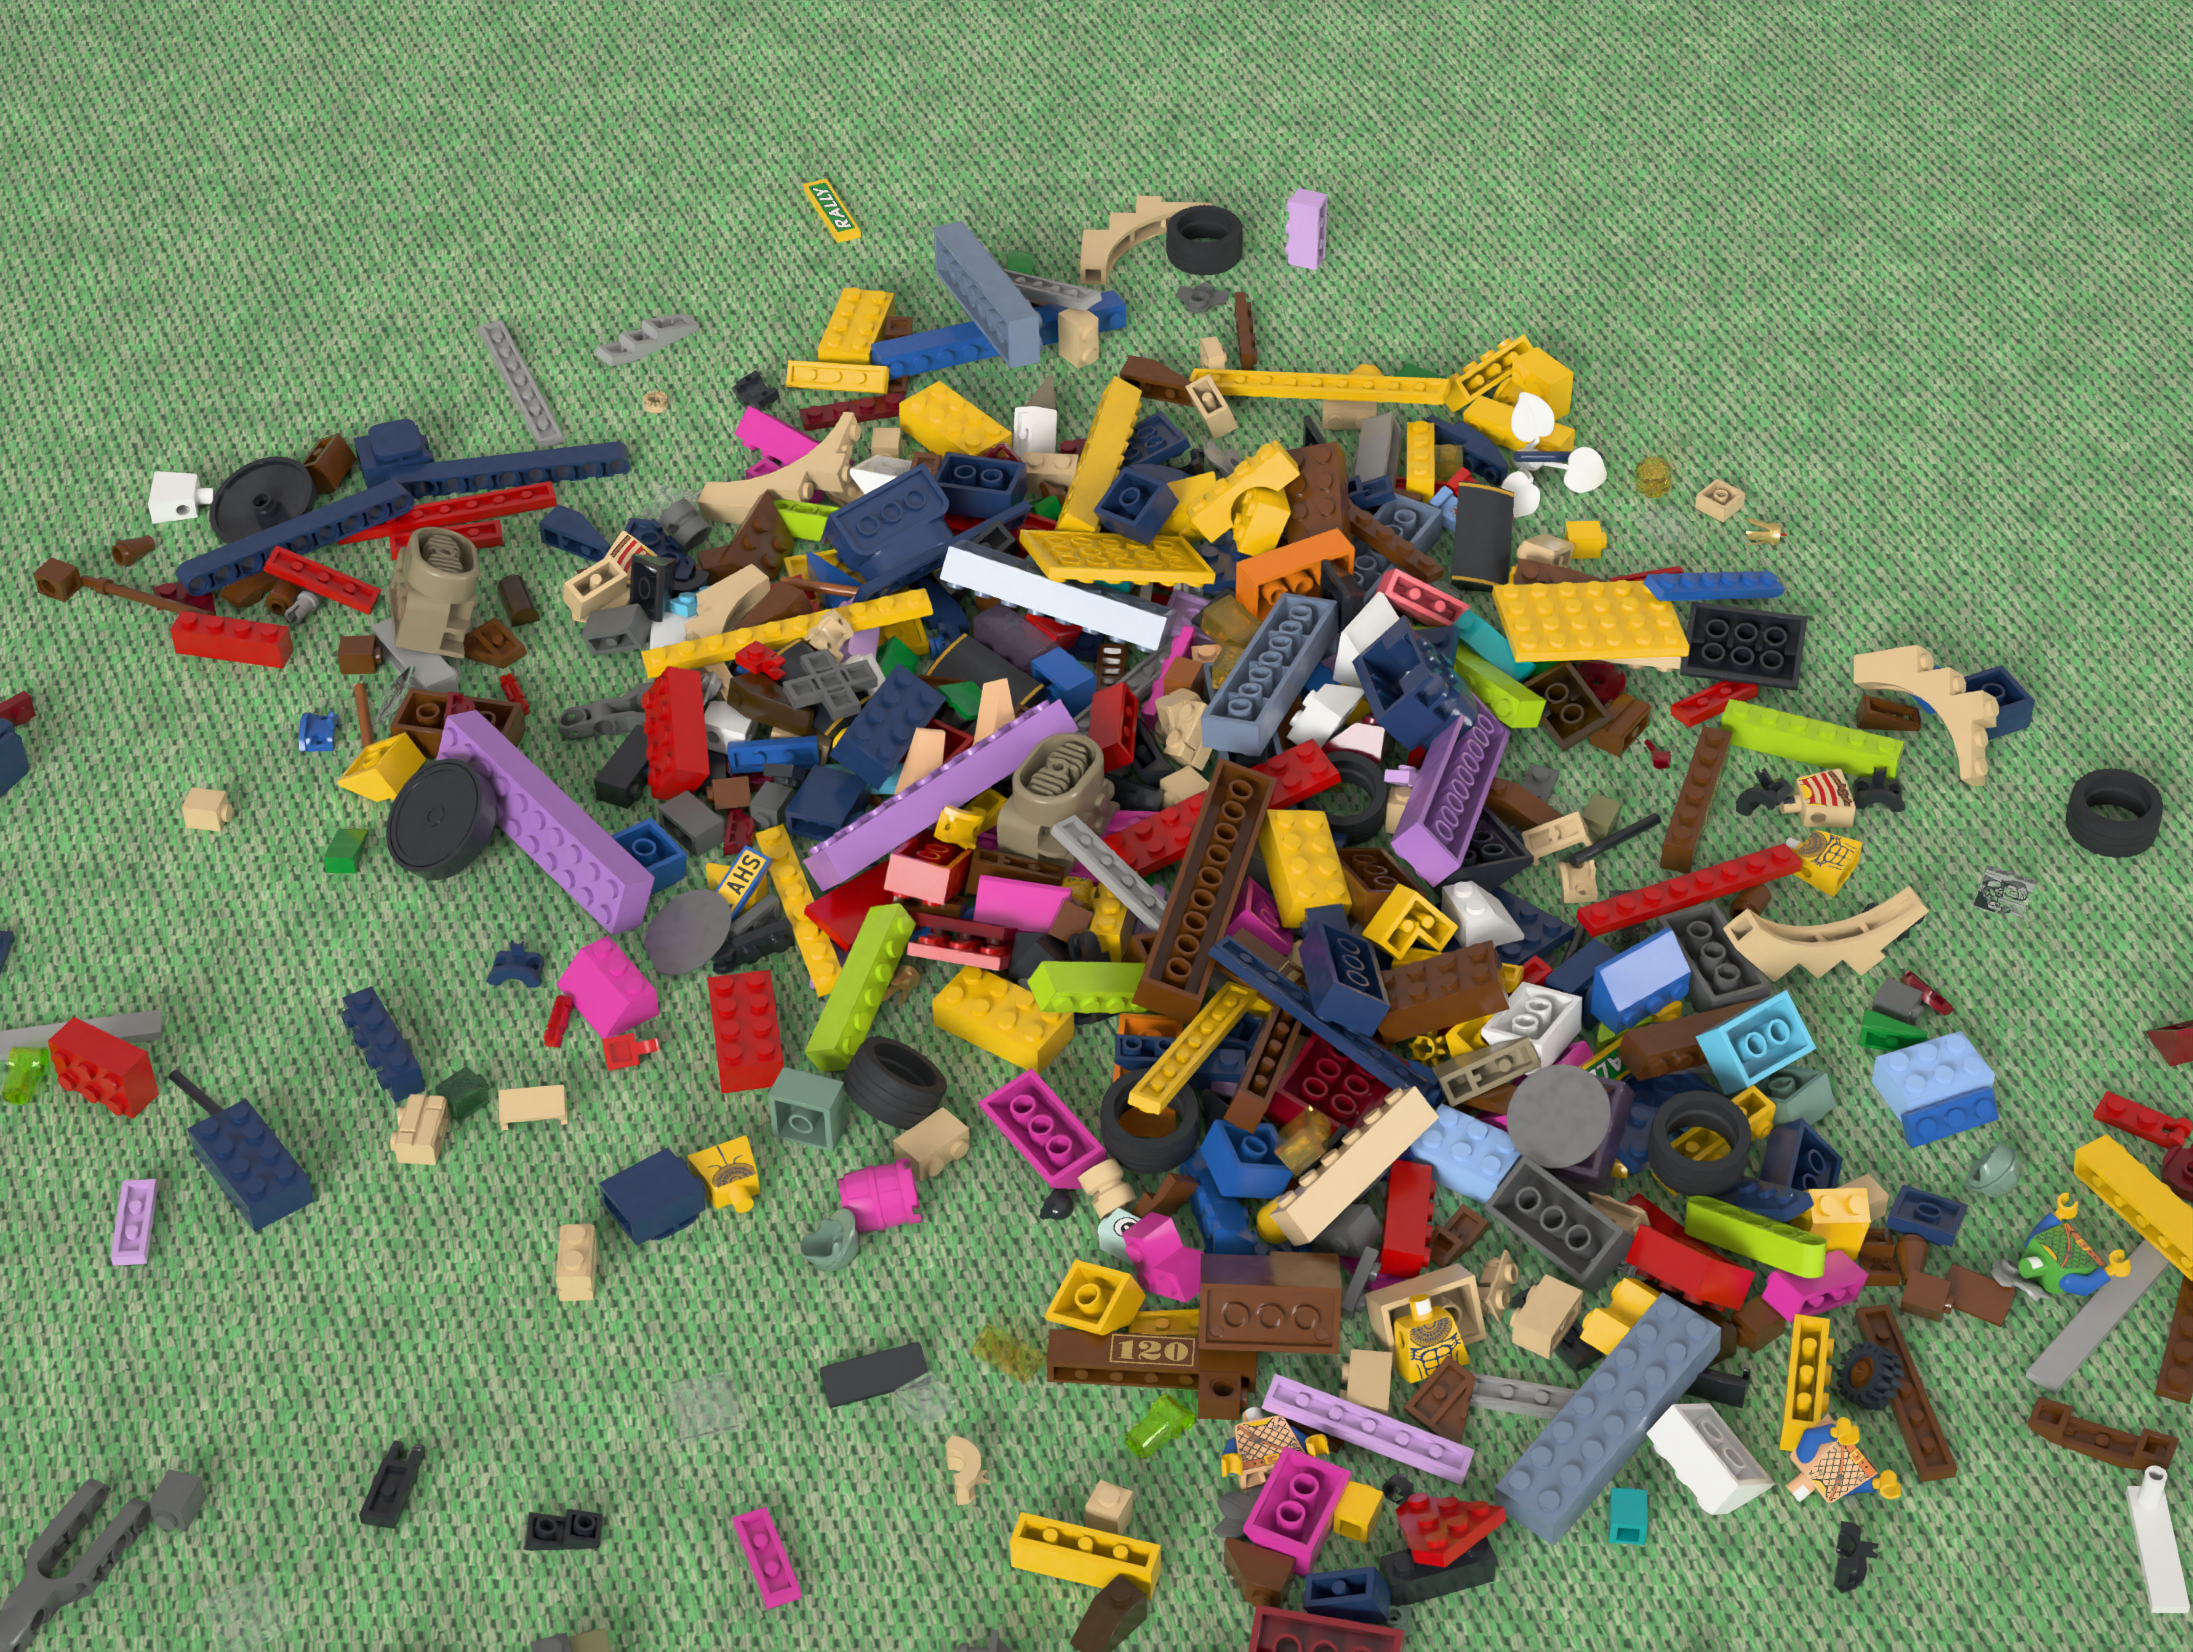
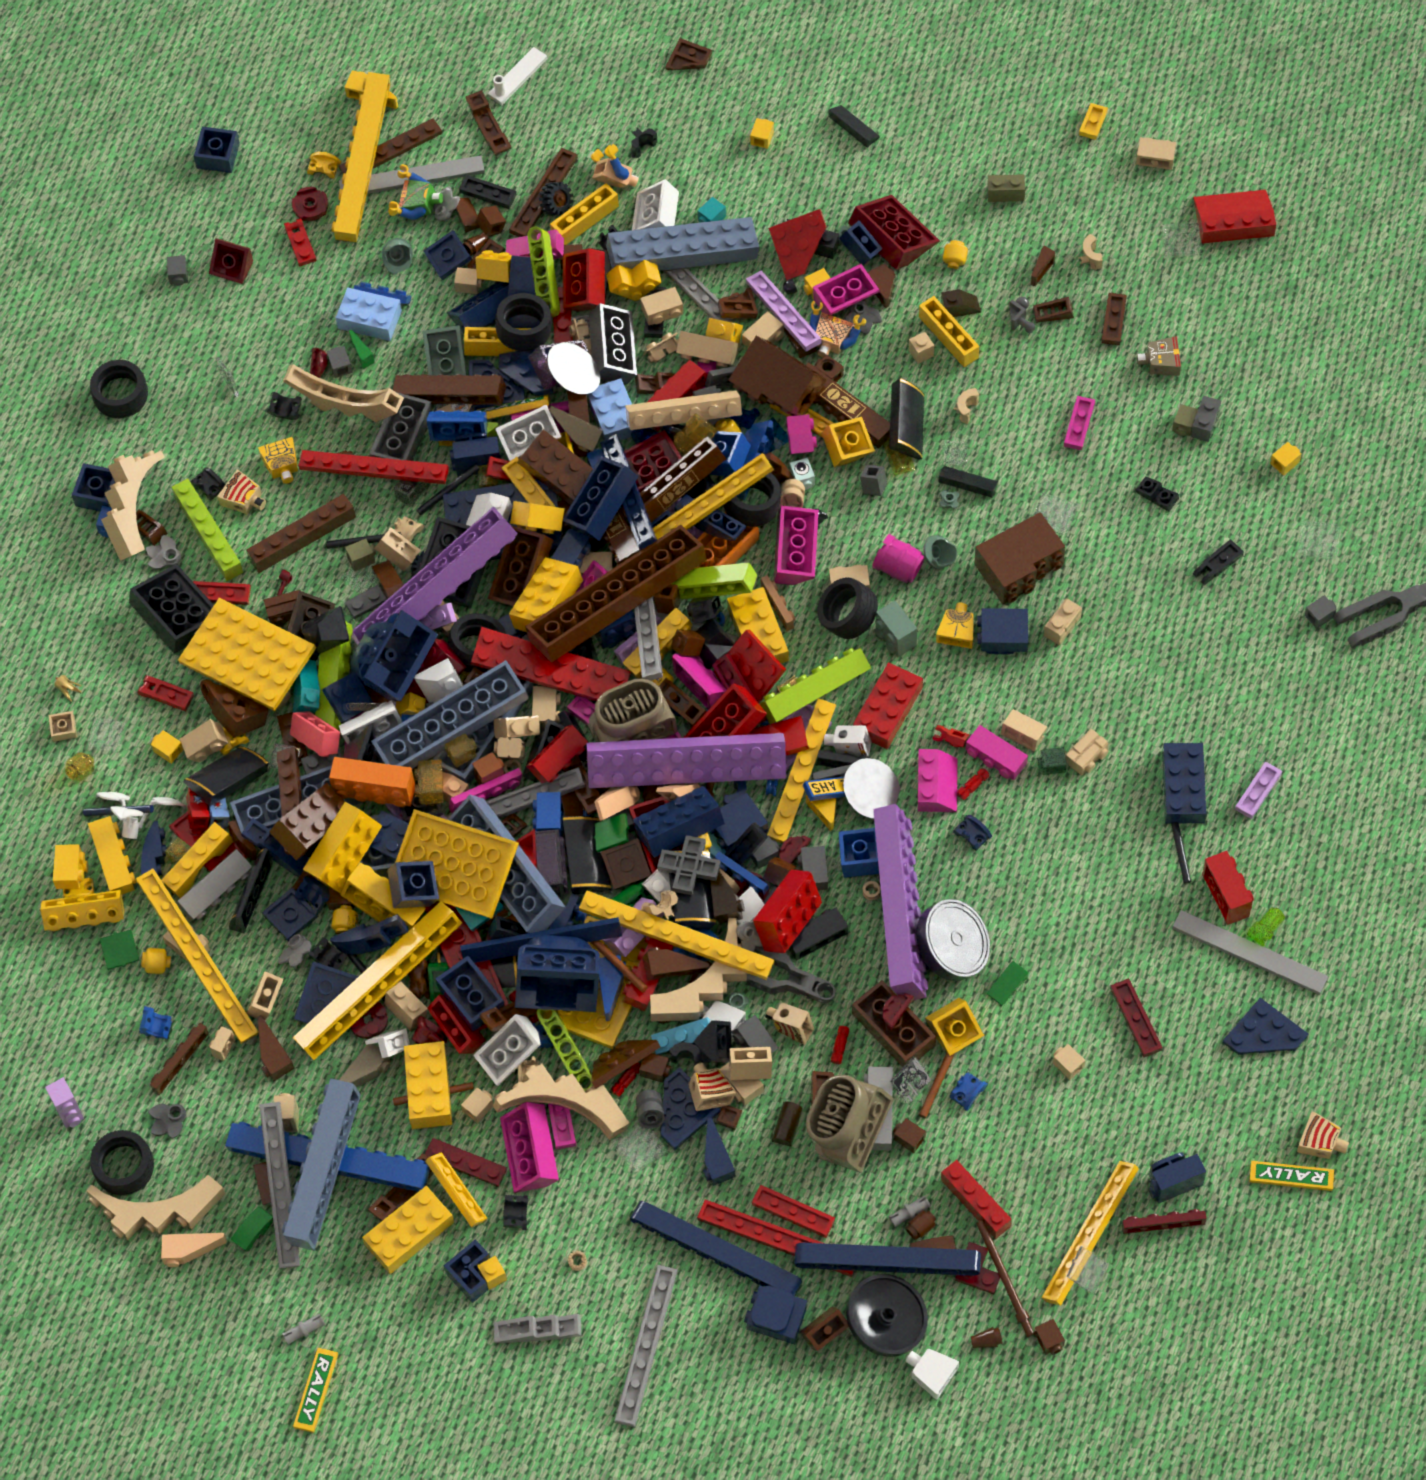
camera: 140 degrees left, 20 degrees up
(48, 645) = (1087, 1270): none -> clear piece
(68, 683) = (1091, 1229): none -> yellow plate
(147, 896) = (1136, 1017): none -> dark red plate
(322, 580) = (895, 1208): red plate -> none
(382, 1044) = (1073, 818): dark blue brick -> none
(550, 1062) = (996, 753): none -> dark pink brick
(587, 669) = (791, 1022): none -> tan torso
(702, 1293) = (1019, 557): none -> reddish brown piece
(735, 345) = (492, 1272): none -> yellow brick
(760, 329) = (464, 1271): none -> dark blue brick
(760, 658) = (710, 917): red plate -> none
(762, 952) = (850, 740): none -> white torso
(881, 1341) = (949, 503): none -> sand green plate
(888, 235) = (303, 1328): none -> light grey pin
(960, 826) = (689, 729): yellow piece -> none
(1002, 1062) = (778, 603): none -> medium nougat plate
(1010, 1278) = (873, 480): none -> dark grey brick
(1034, 1389) = (906, 419): none -> black slope
(1067, 227) = (185, 1247): none -> light nougat slope
(1165, 1420) = (862, 375): clear neon green piece -> none
(1268, 468) = (351, 842): yellow arch -> none
(1306, 344) = (155, 1024): none -> blue piece
(1526, 680) = (326, 630): none -> black slope
(1714, 585) = (149, 646): blue plate -> none
(1755, 1042) = (440, 358): medium azure brick -> none
(1768, 792) = (269, 510): black piece -> none
(1832, 704) = (160, 553): none -> light grey plate
(1983, 1342) = (487, 191): none -> black plate

